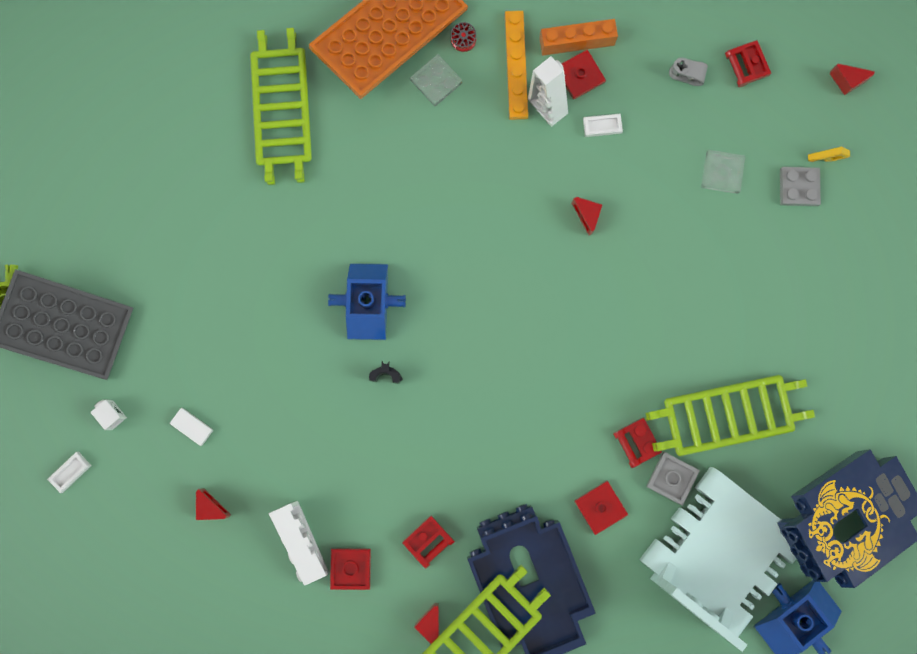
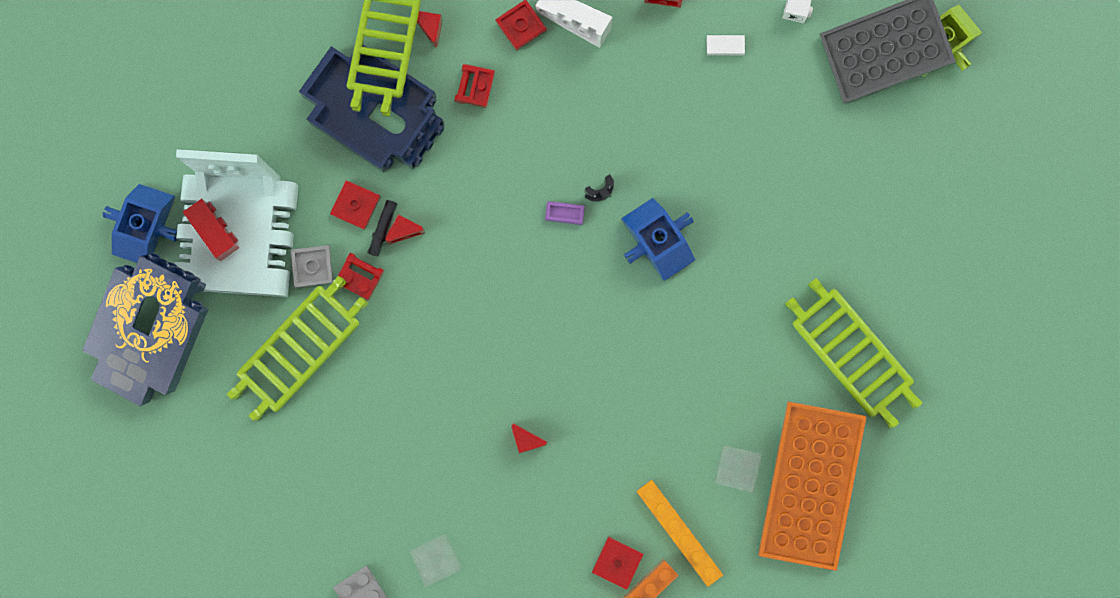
camera: 145 degrees right, 0 degrees up
(428, 377) = (564, 213): none -> medium lavender tile
(463, 37) = (742, 525): red wheel -> none
(548, 91) = (629, 517): white wedge -> none
(574, 456) = (402, 230): none -> red slope
(598, 464) = (379, 235): none -> black pin
(602, 125) = (567, 529): white tile -> none
(743, 567) = (212, 229): none -> red brick

